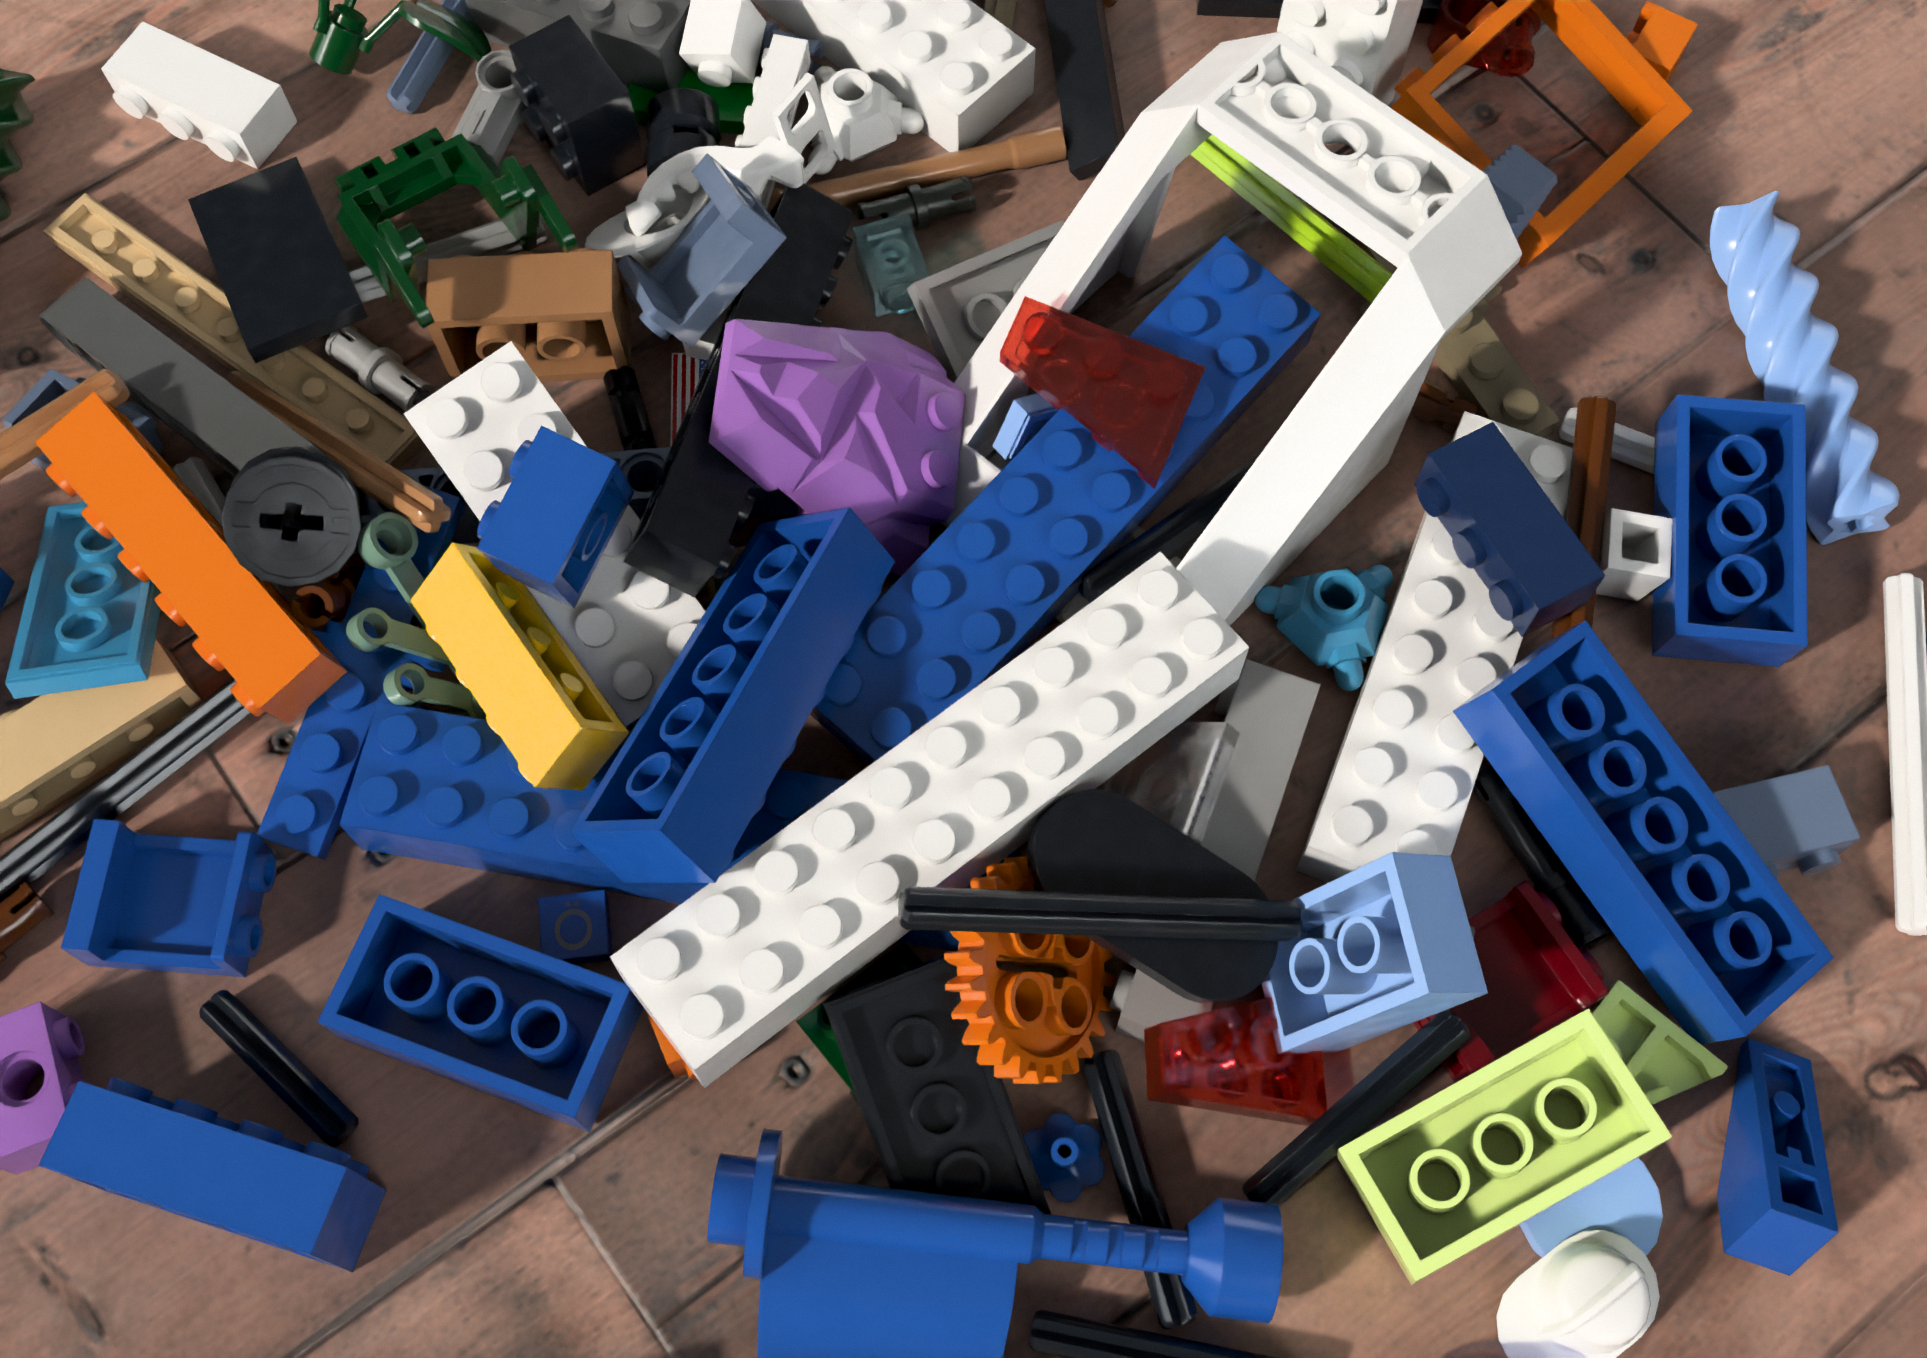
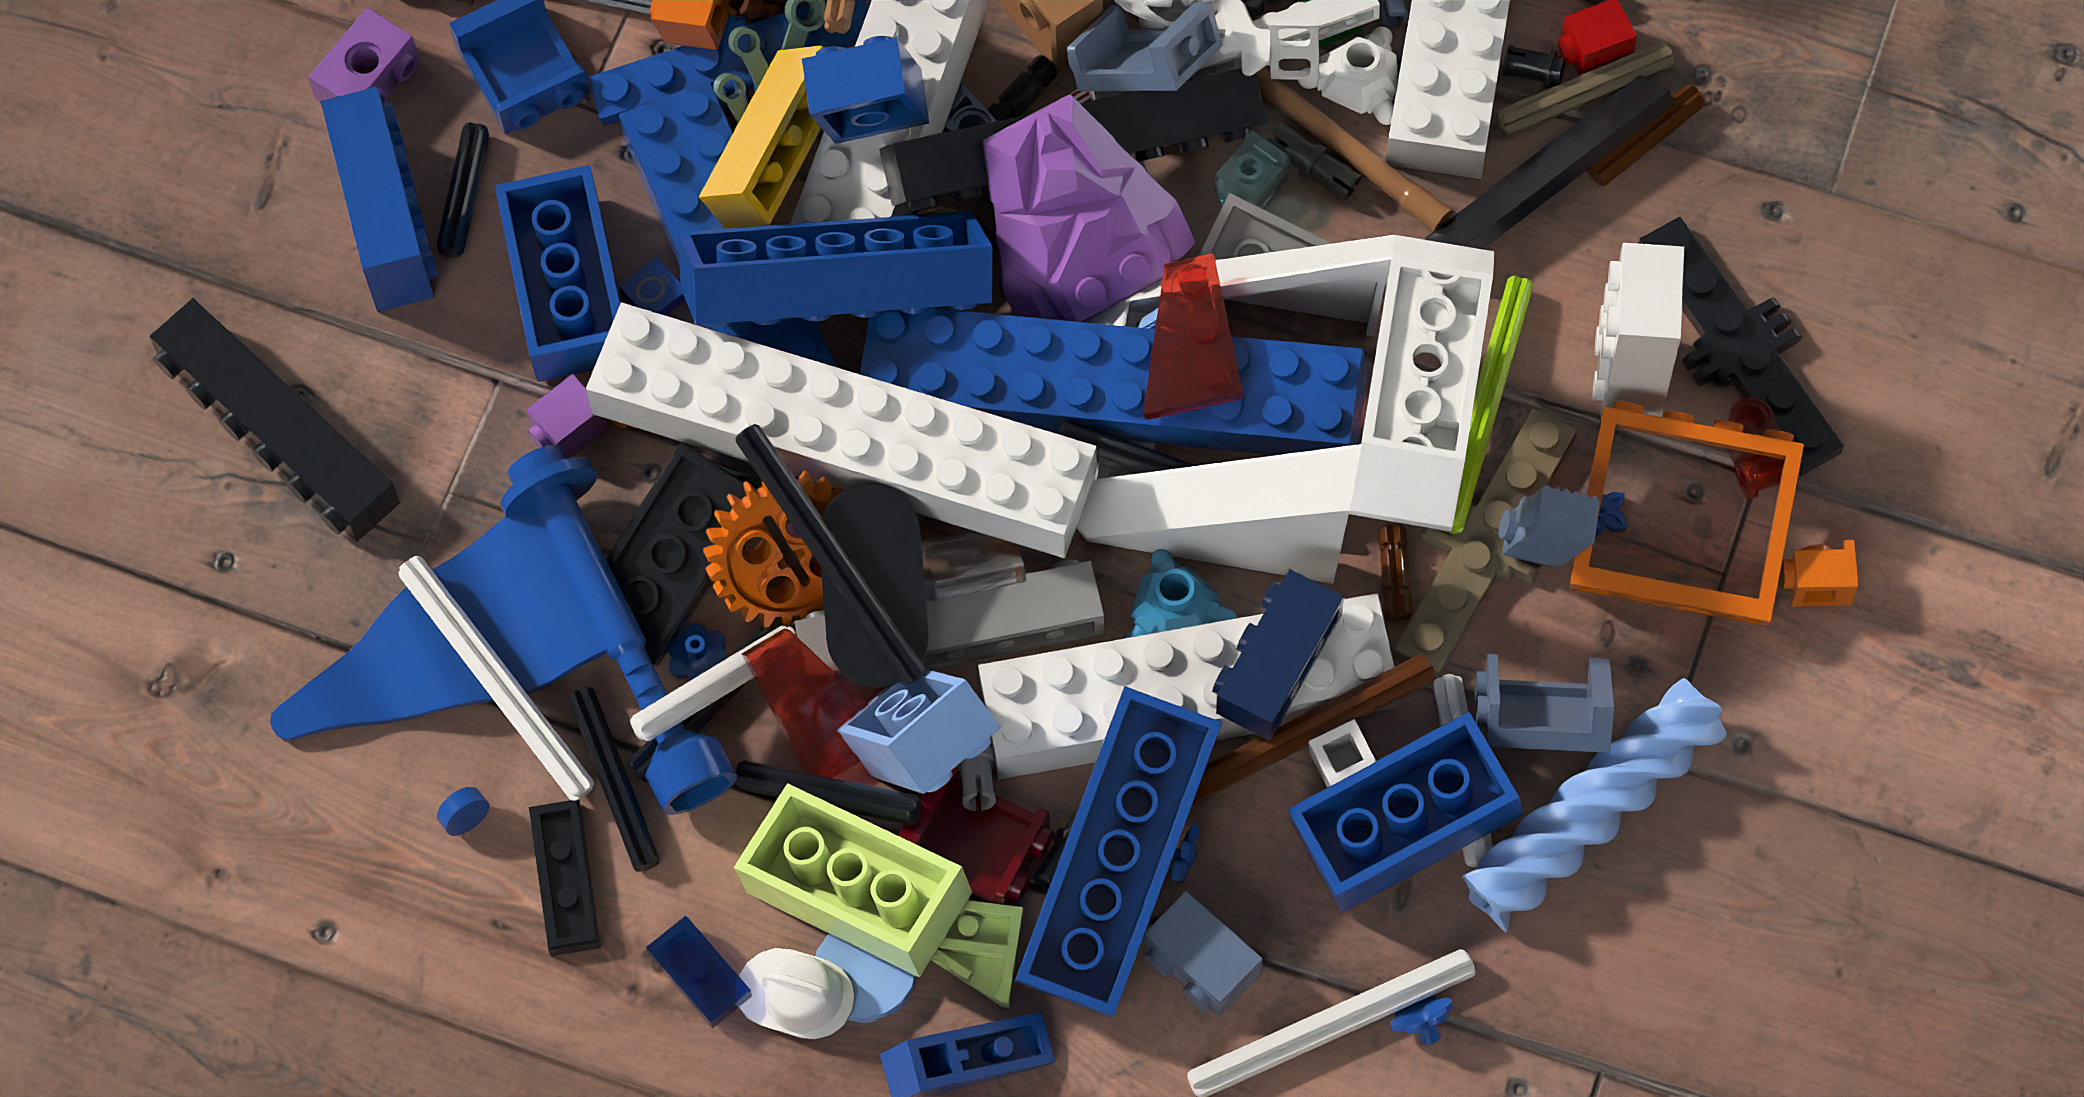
camera: 60 degrees right, 0 degrees up
(668, 1127) = (564, 418): none -> medium lavender brick
(1149, 1165) = (695, 694): none -> white axle
(1685, 337) = (1546, 712): none -> sand blue panel

